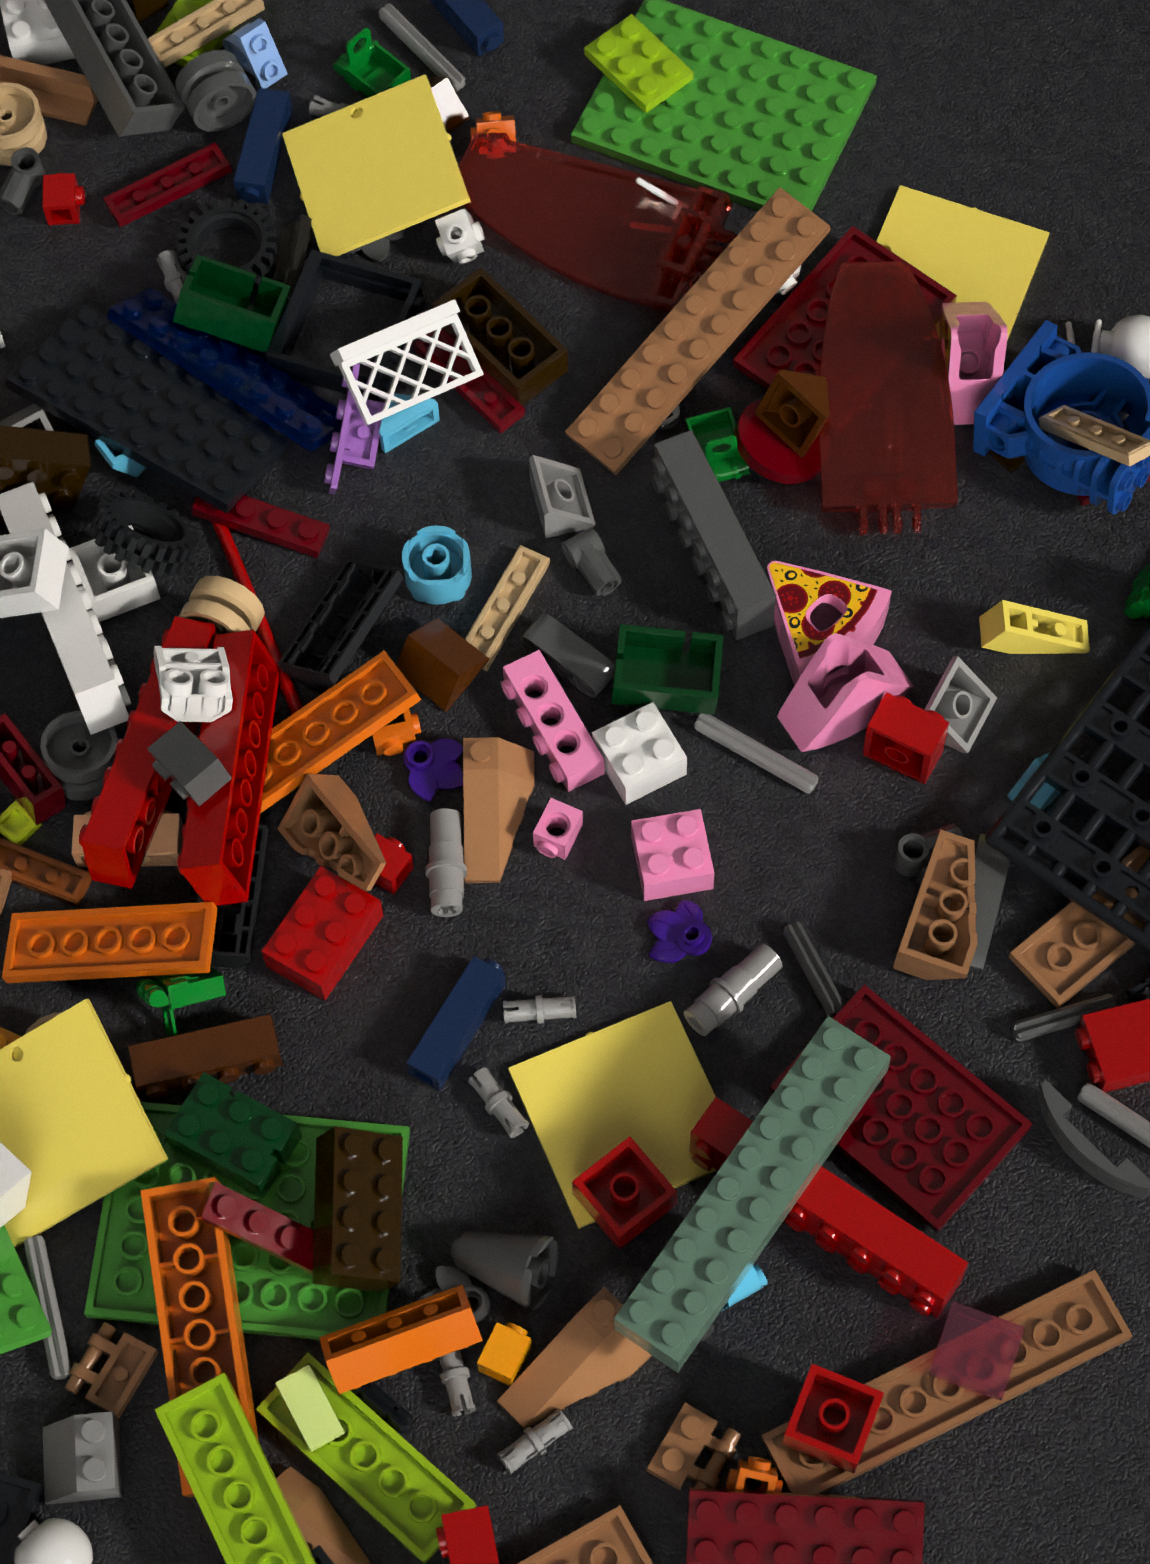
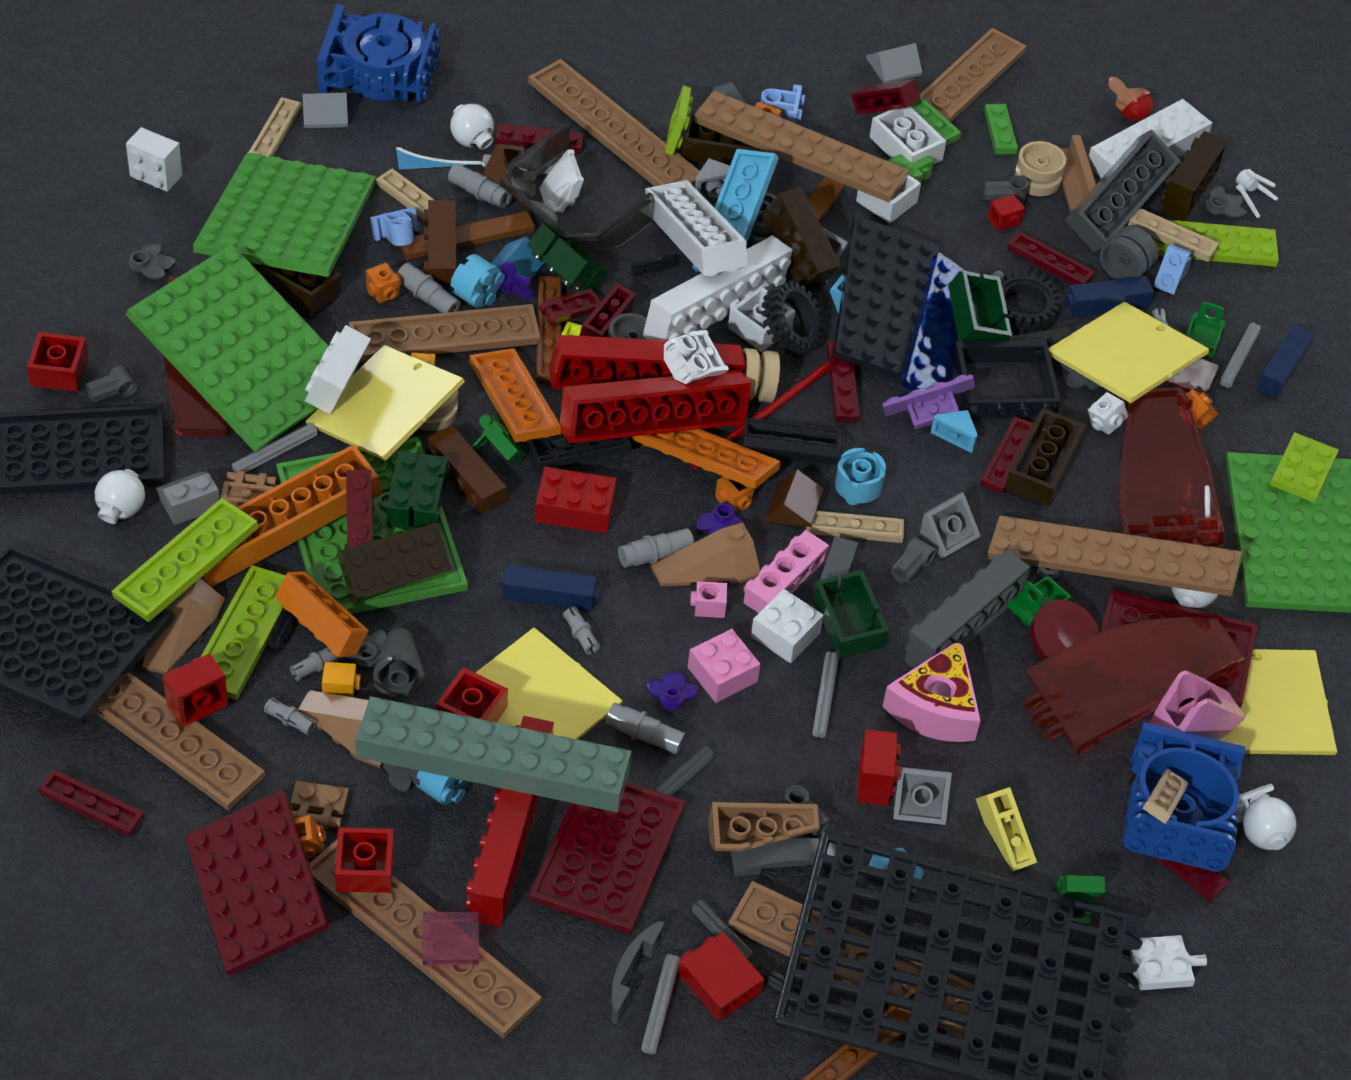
camera: 60 degrees right, 15 degrees down
(189, 763) = (633, 367): dark grey brick -> none
(310, 1408) = (260, 589): yellowish green tile -> none
(333, 830) = (649, 475): medium nougat wedge -> none
(398, 335) = (1003, 390): white fence -> none
(398, 863) = (640, 517): red brick -> none
(498, 1102) = (506, 627): light grey pin -> none
(796, 408) = (1086, 620): reddish brown slope -> none
(840, 705) = (879, 712): bright pink piece -> none

